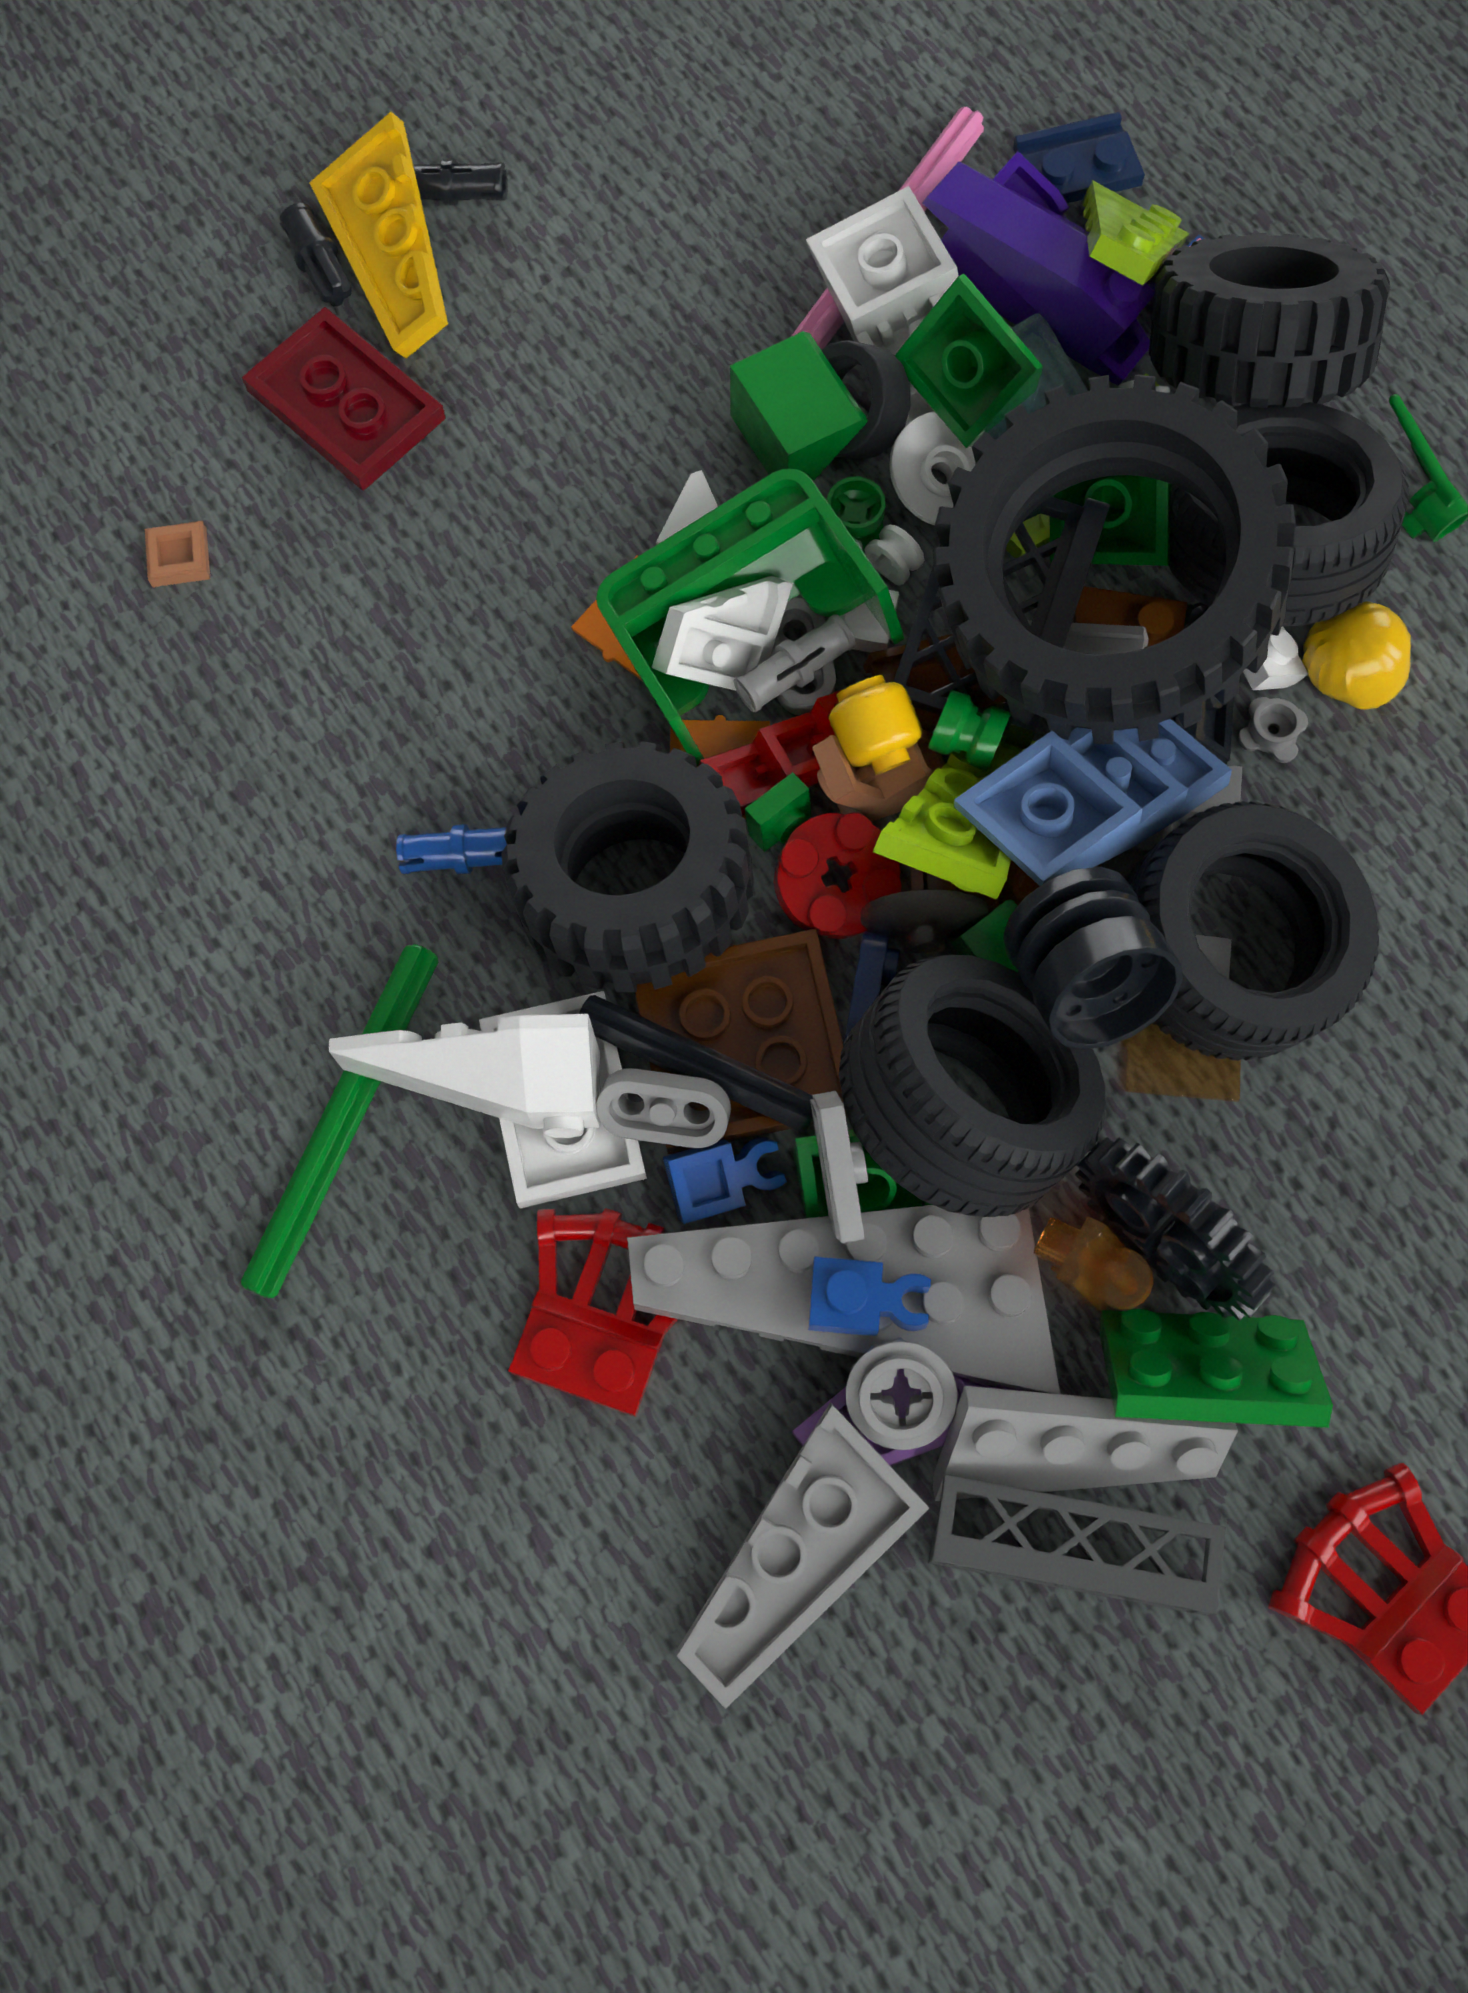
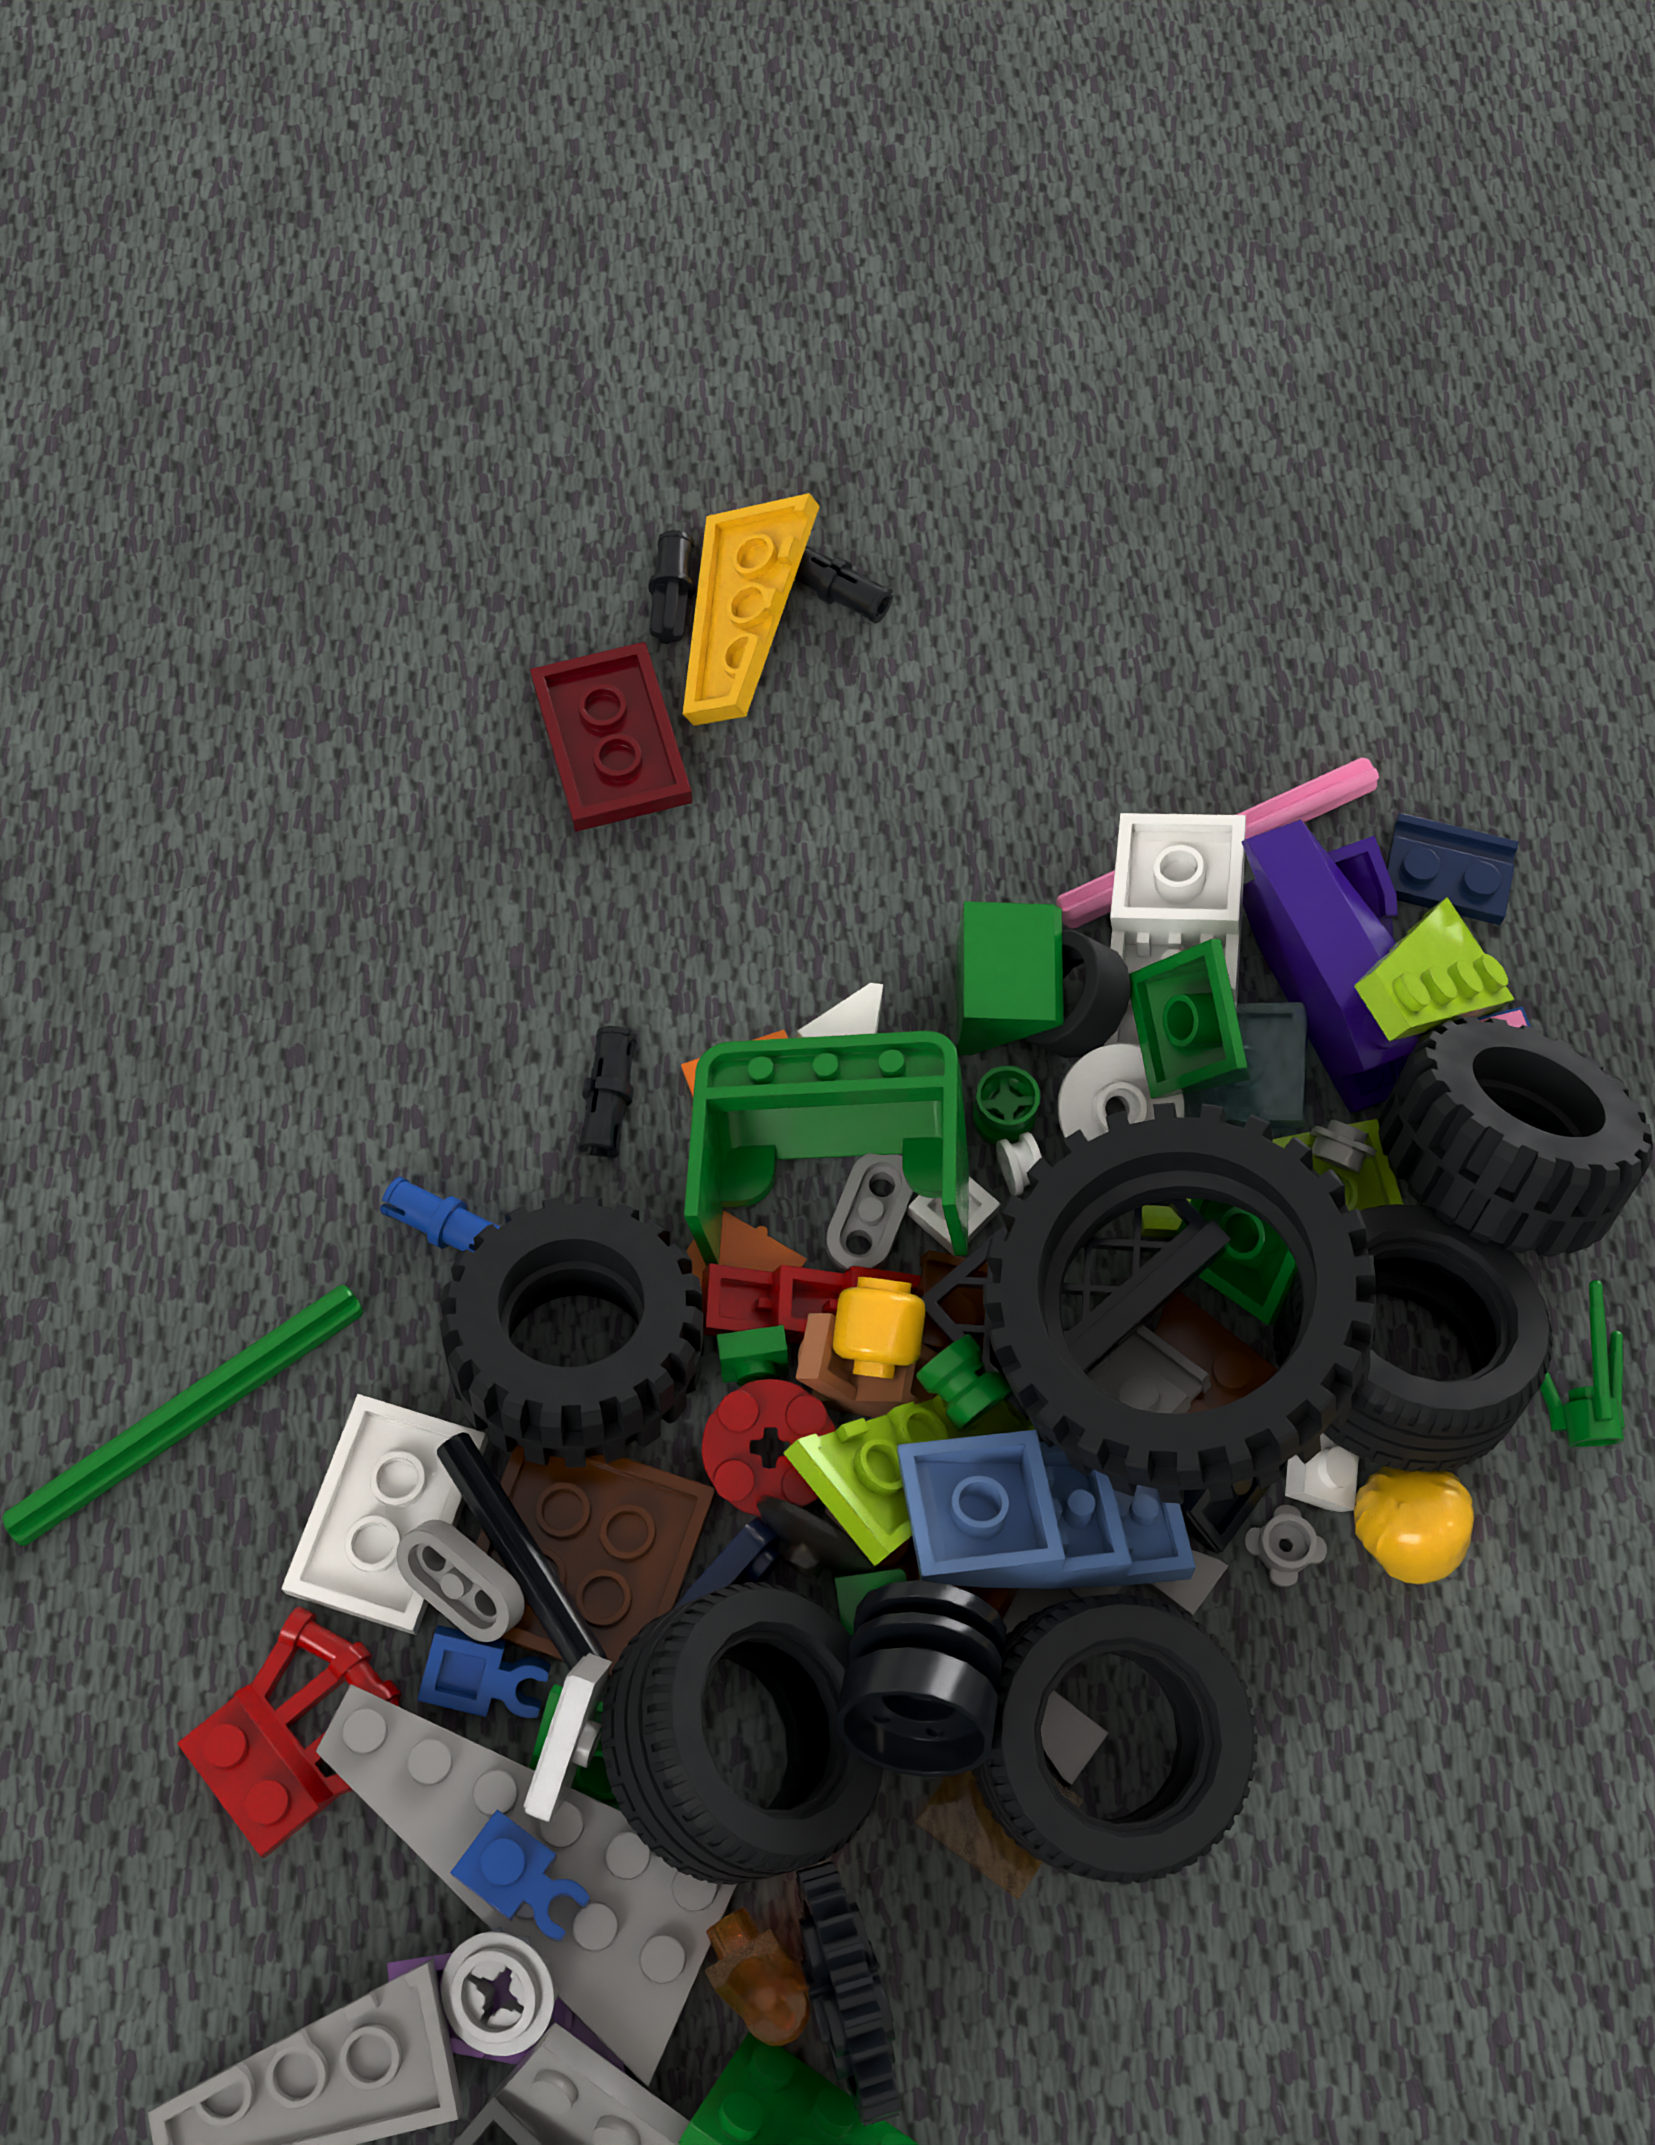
camera: 25 degrees right, 5 degrees down
(177, 554) = (375, 801): nougat tile -> none
(526, 678) = (608, 1092): none -> black pin
(527, 1072) = (356, 1471): white wedge -> none
(723, 632) = (801, 1157): white wing -> none
(794, 663) = (853, 1219): light grey pin -> none

